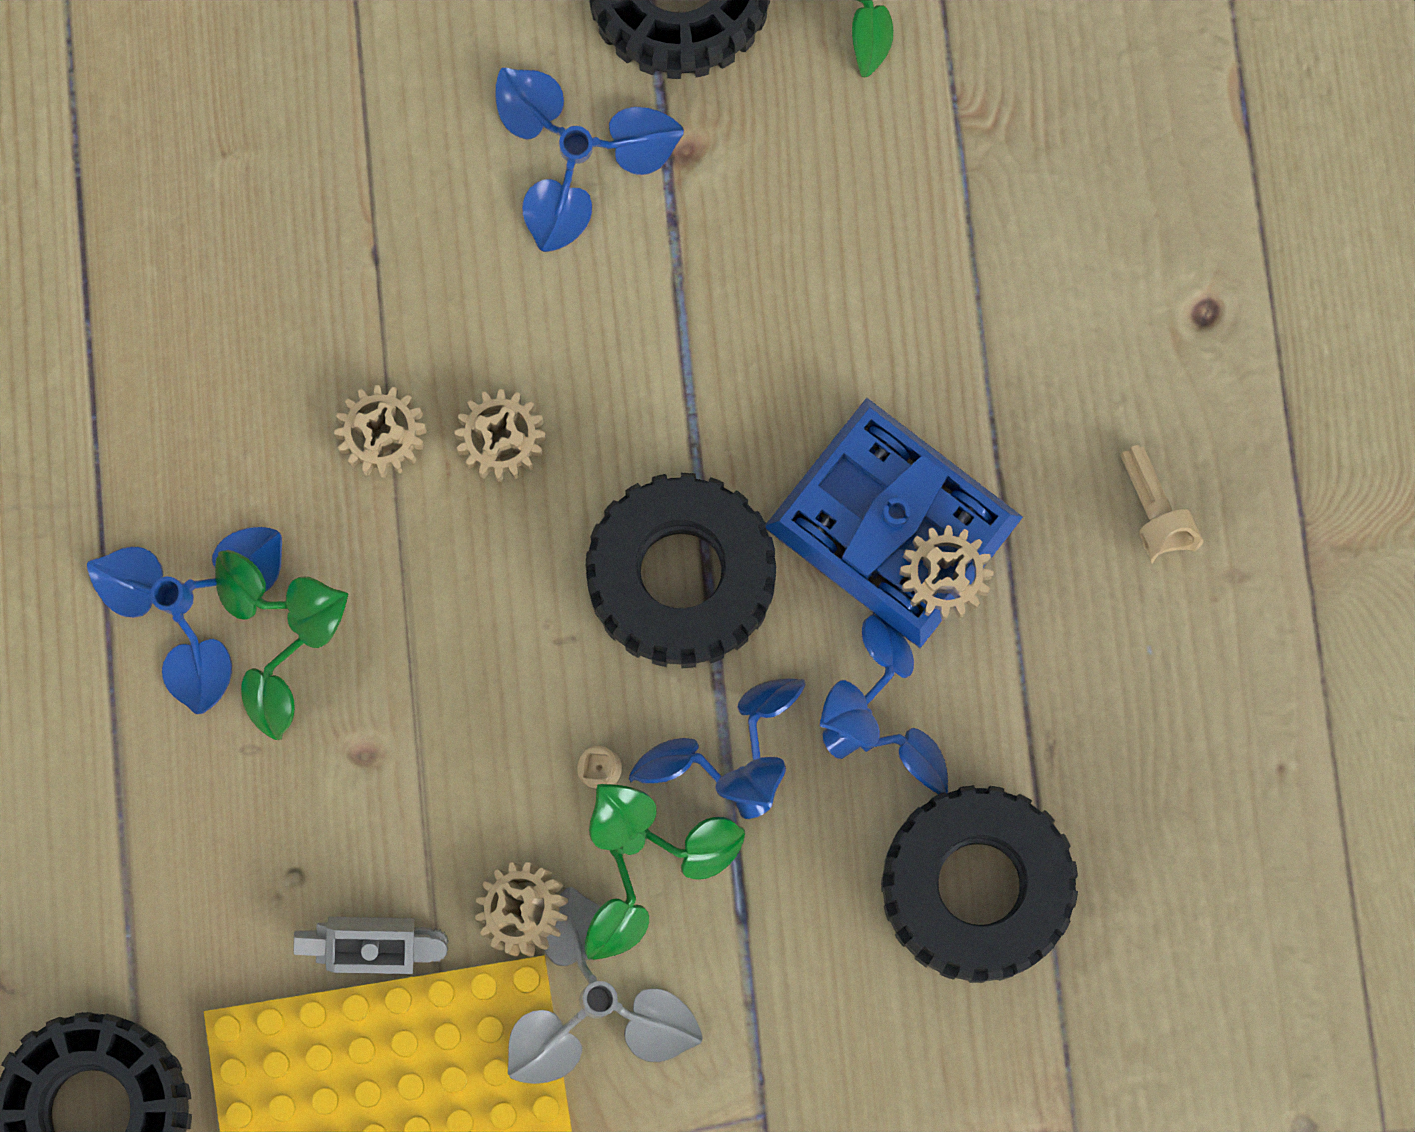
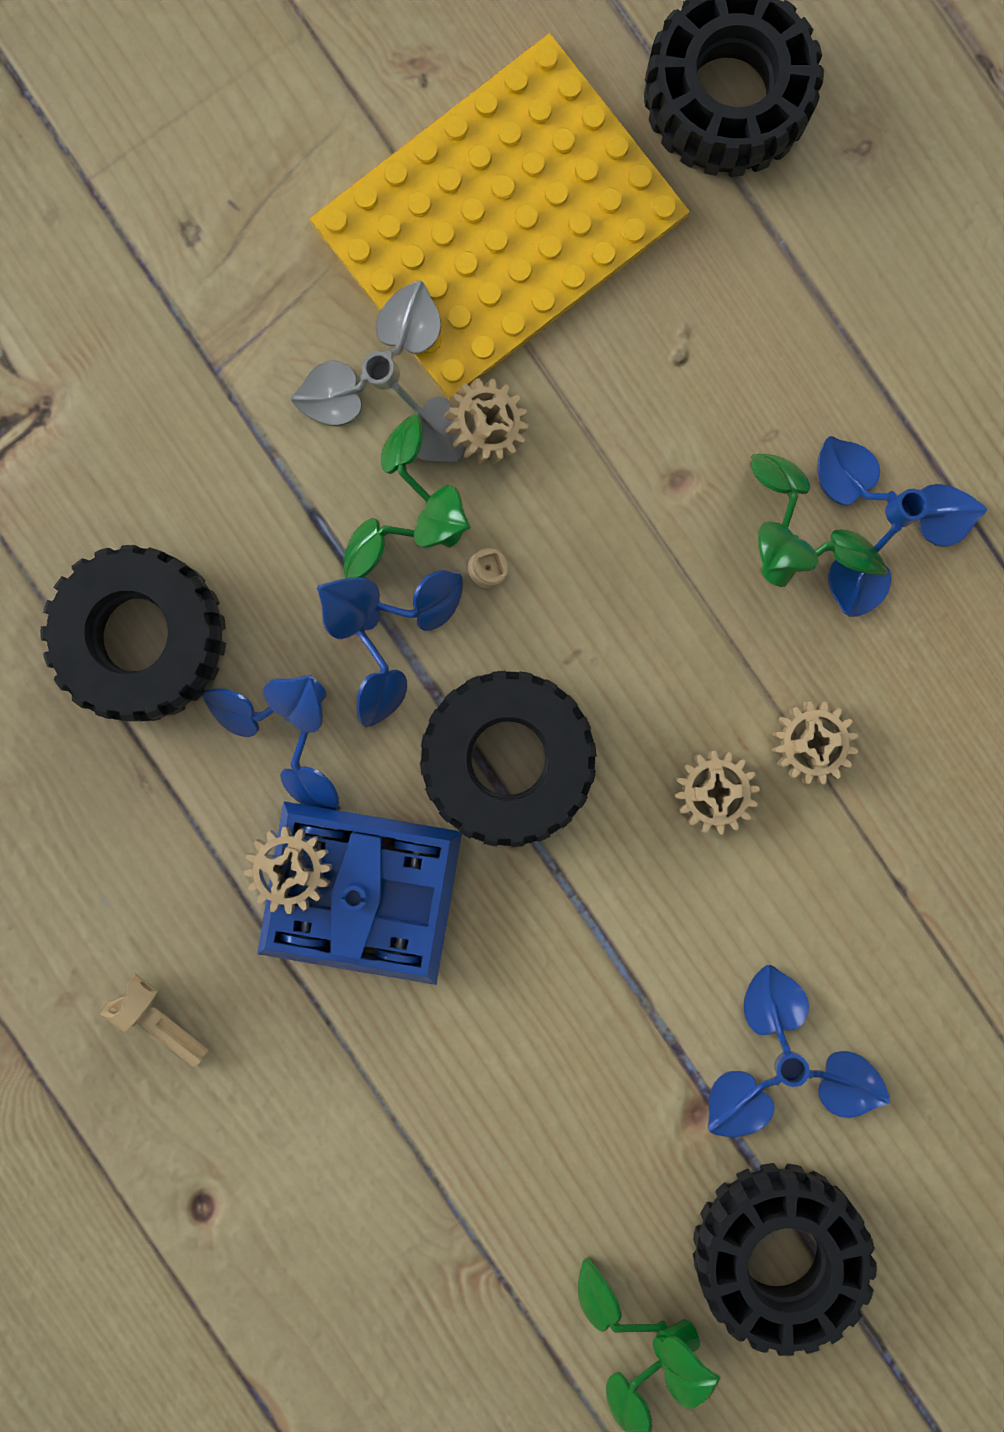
camera: 155 degrees right, 10 degrees up
(371, 944) = (587, 328): light grey hinge -> none

